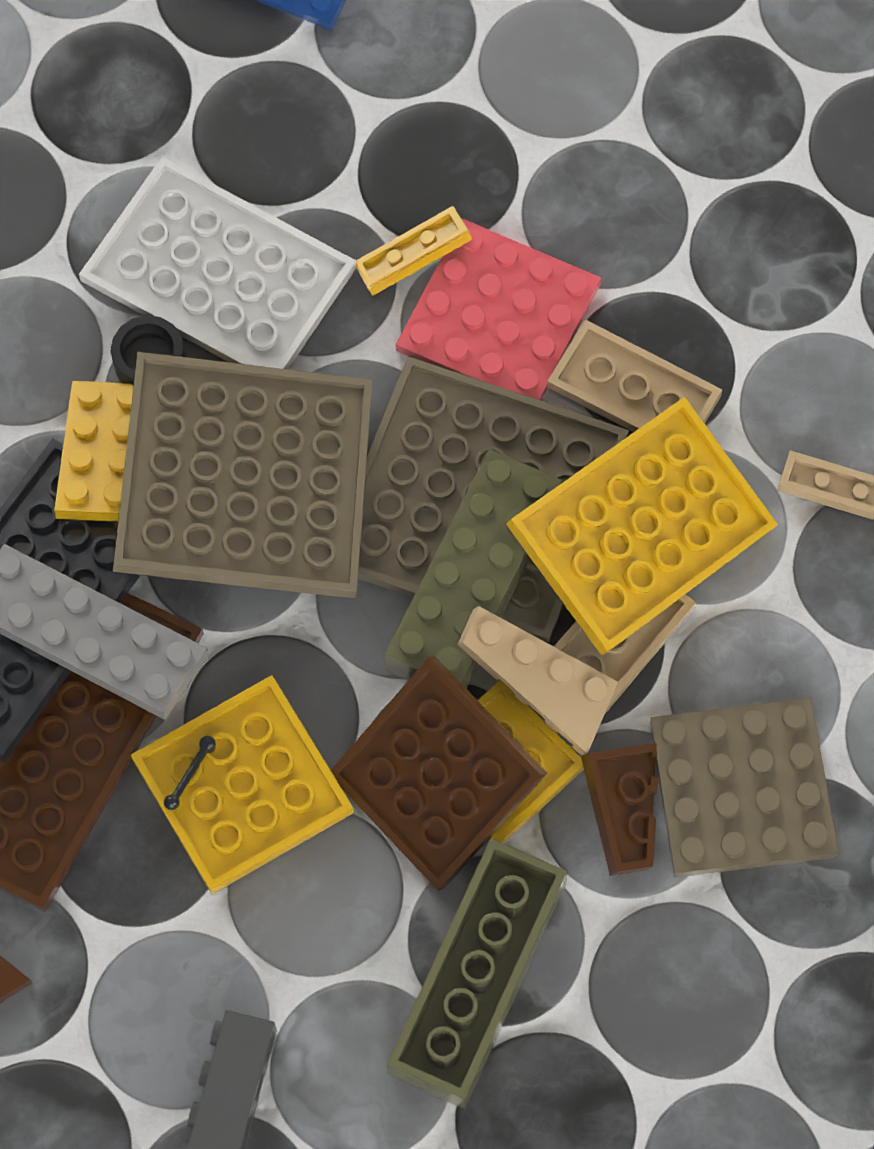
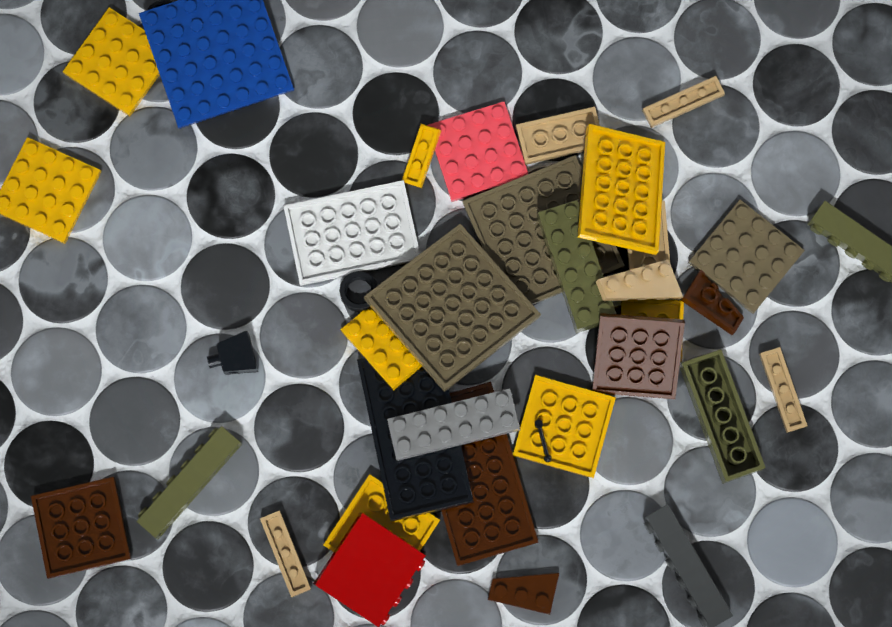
camera: 45 degrees left, 10 degrees up
(609, 1022) = (783, 390): none -> tan plate

